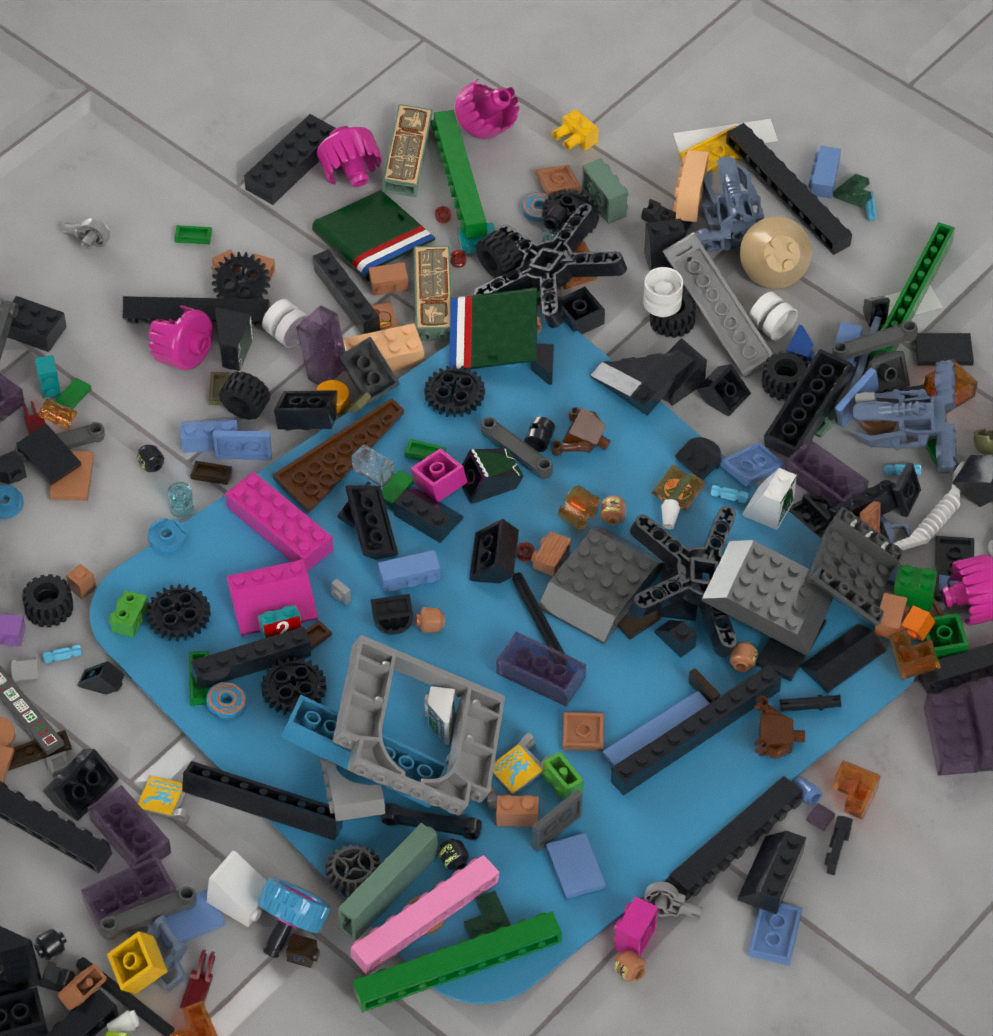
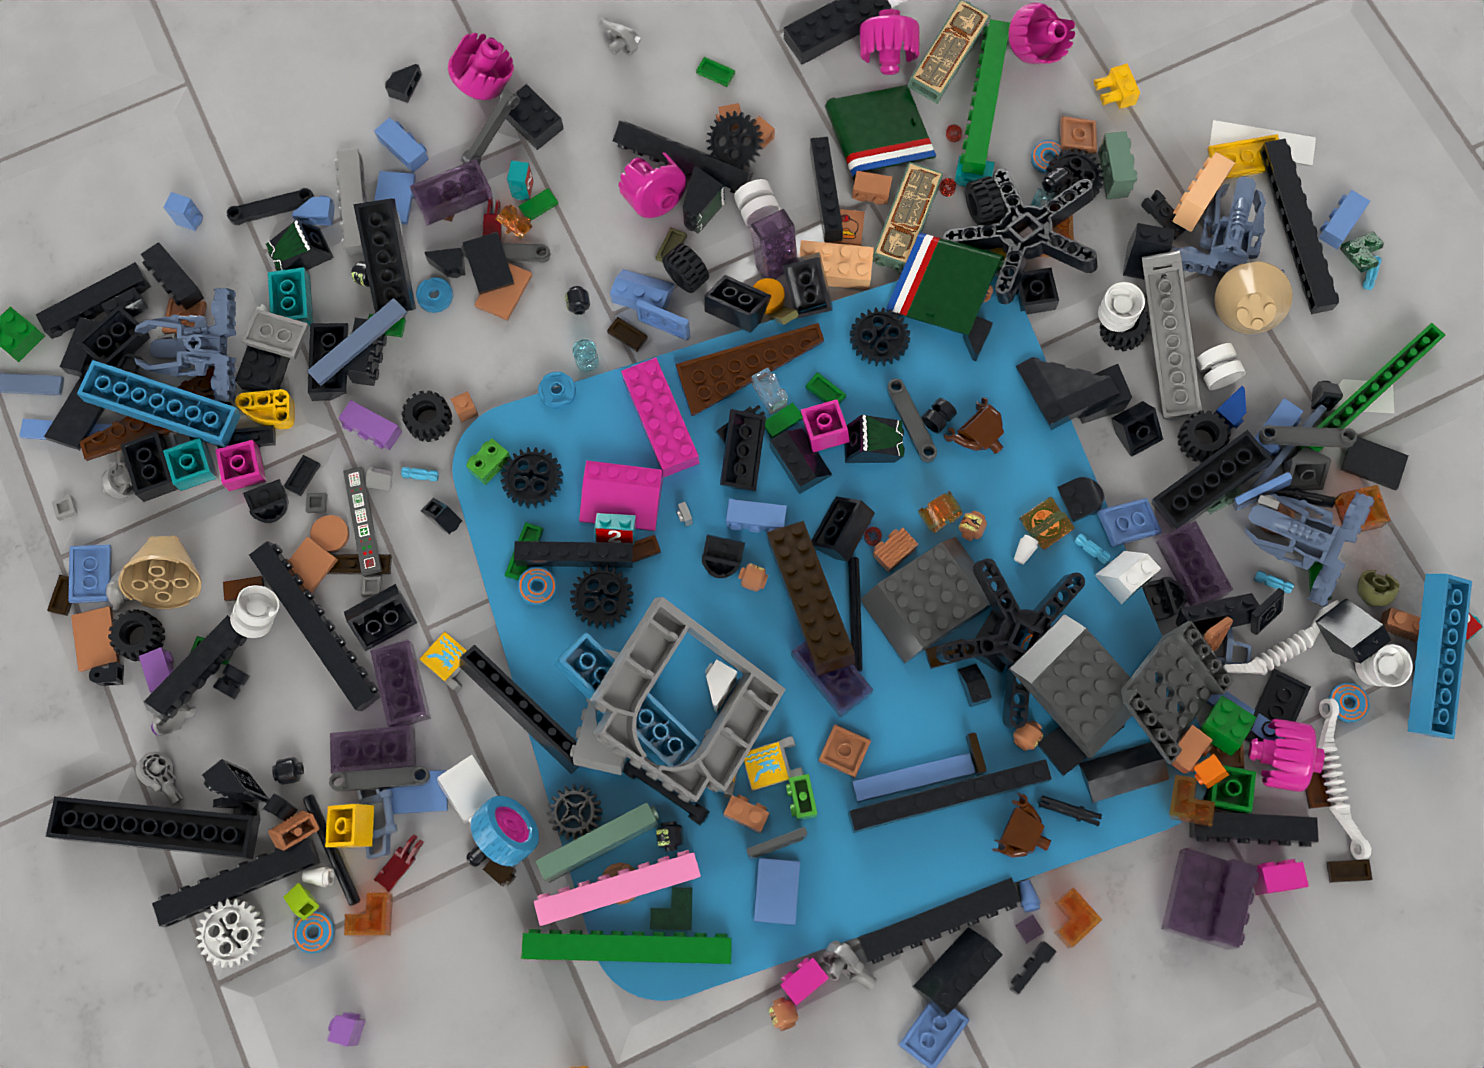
camera: 25 degrees right, 20 degrees up
(493, 610) = (810, 598): none -> dark brown brick

